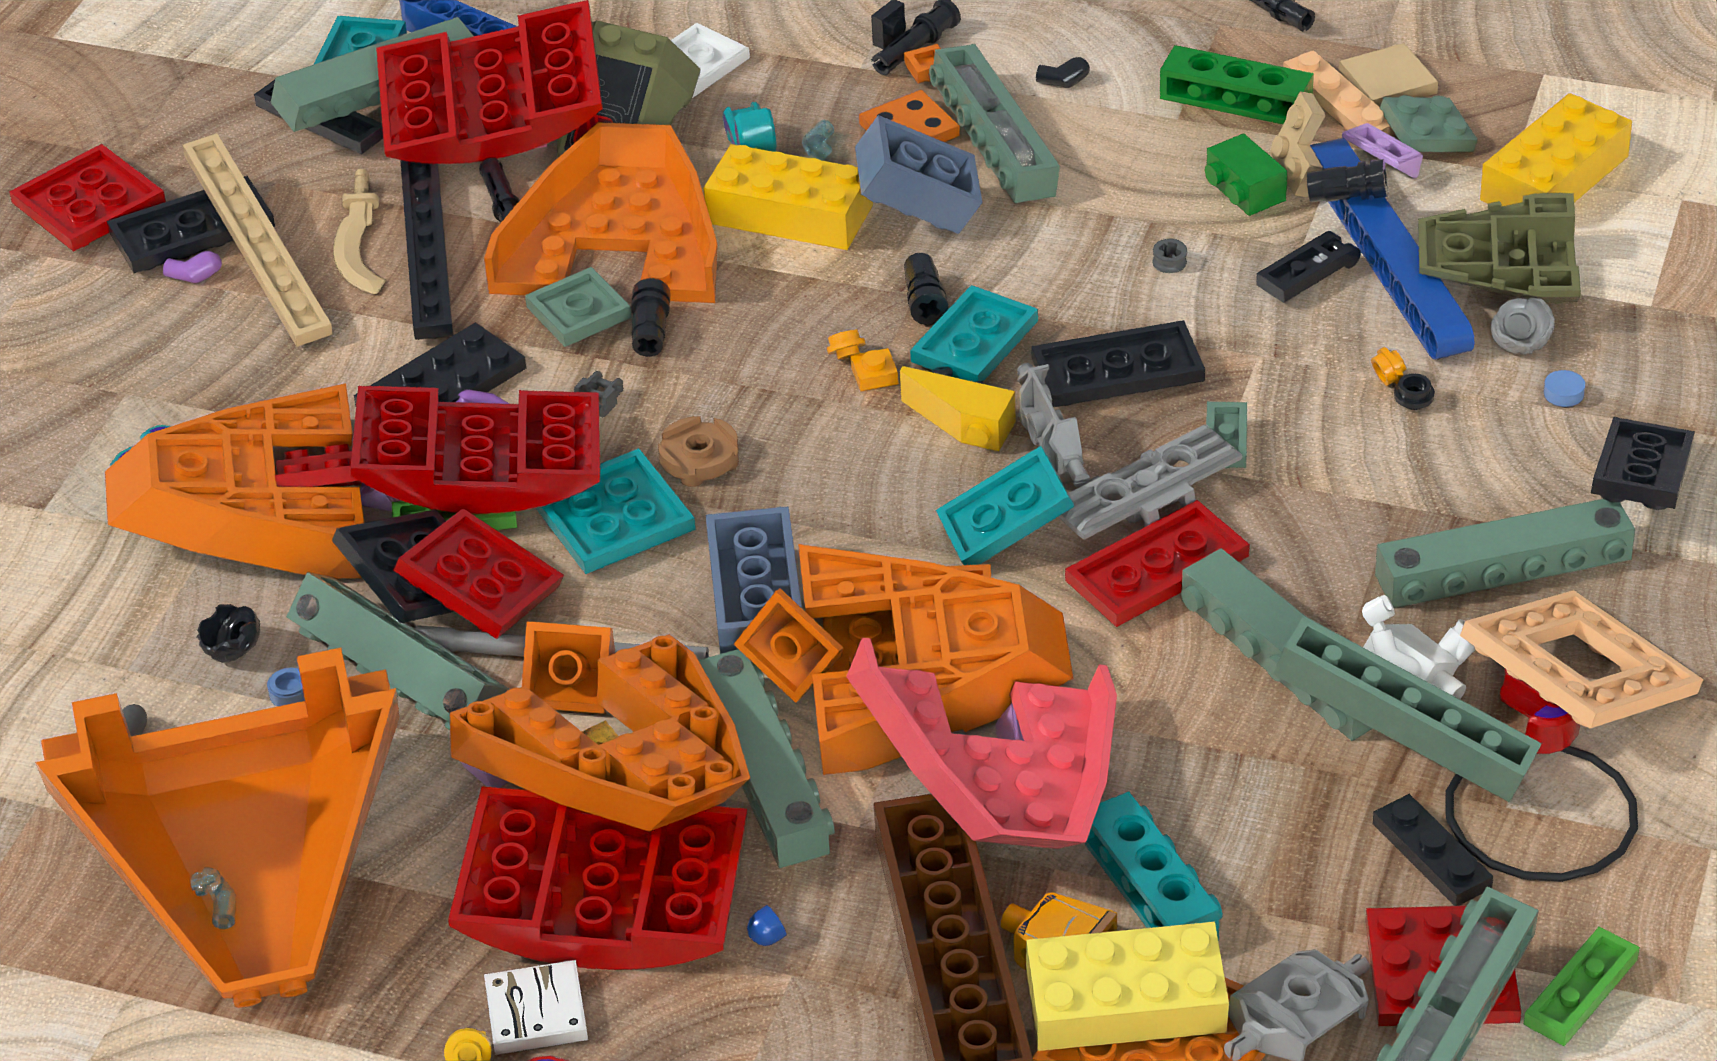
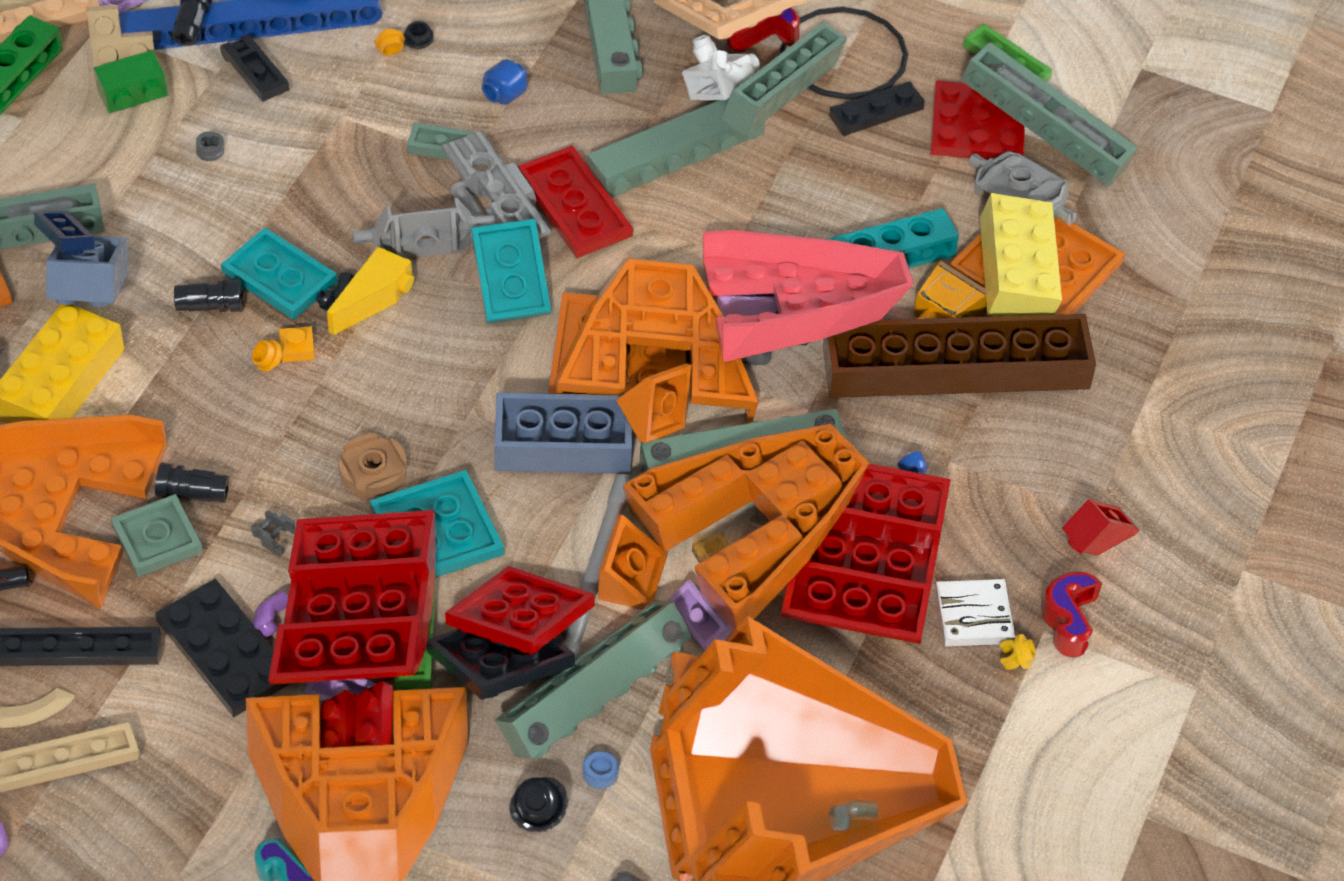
camera: 90 degrees left, 10 degrees up
(948, 134) = (64, 231): none -> dark blue plate
(1119, 363) = (339, 190): black plate -> none
(1350, 474) = (504, 82): none -> blue head

